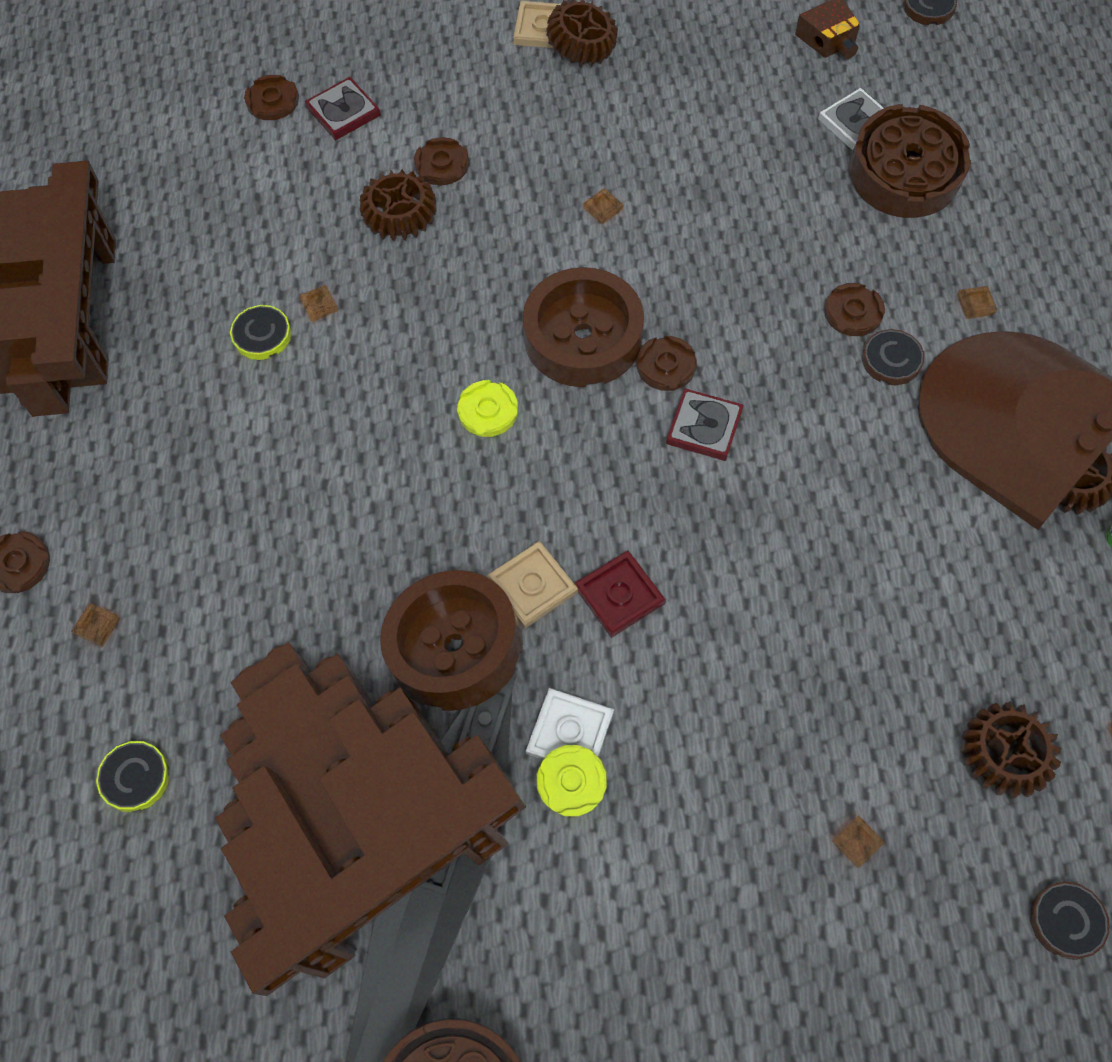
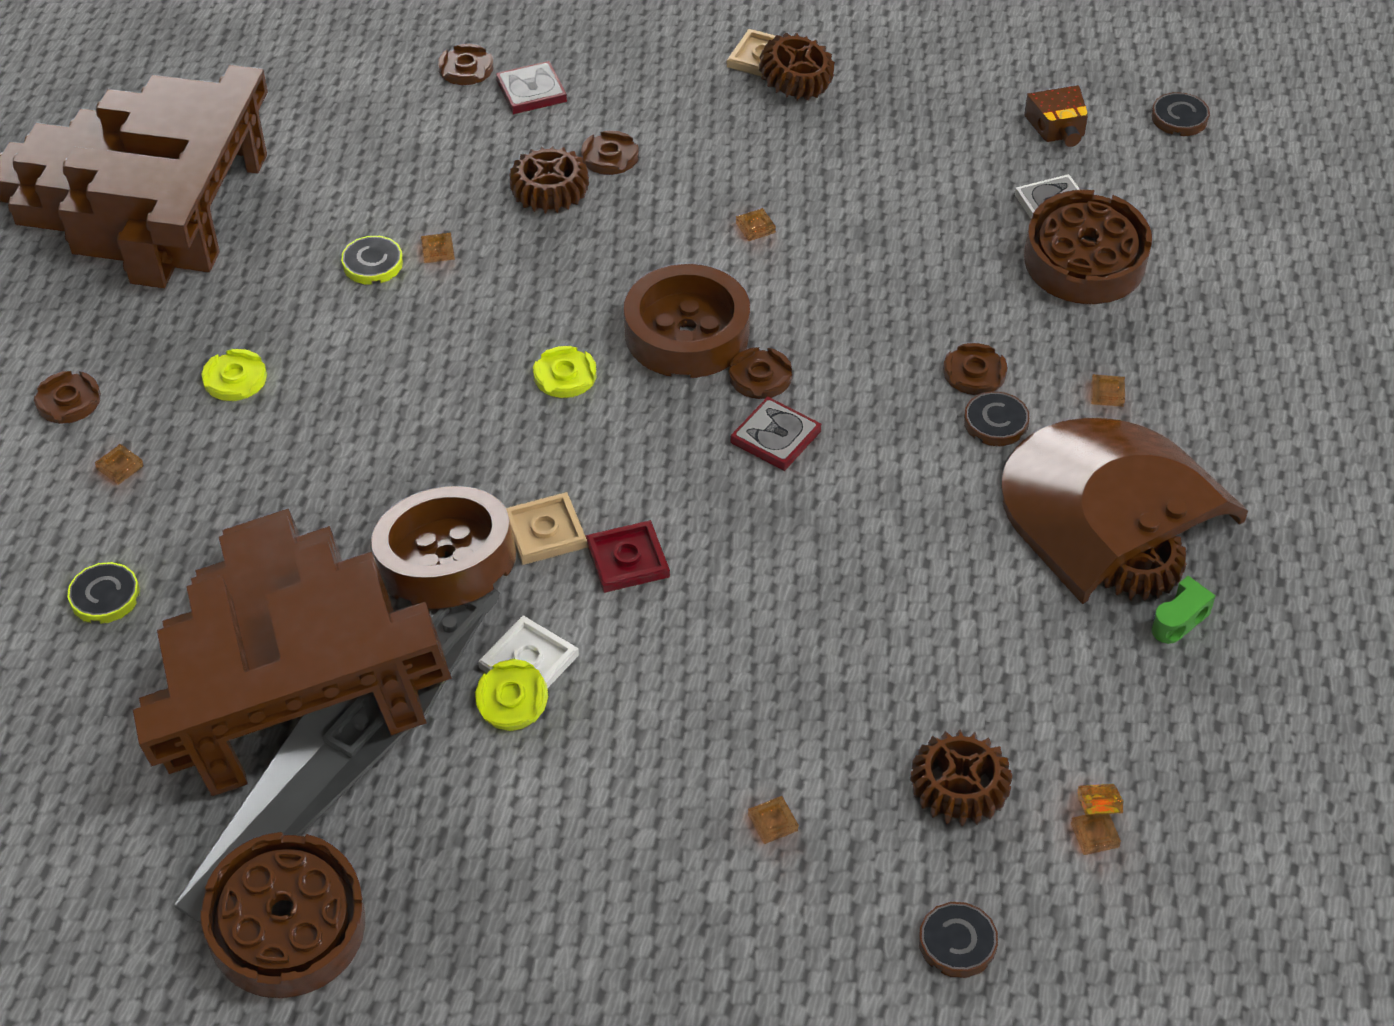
camera: 15 degrees right, 15 degrees down
(173, 494) = (234, 383): none -> neon yellow tile

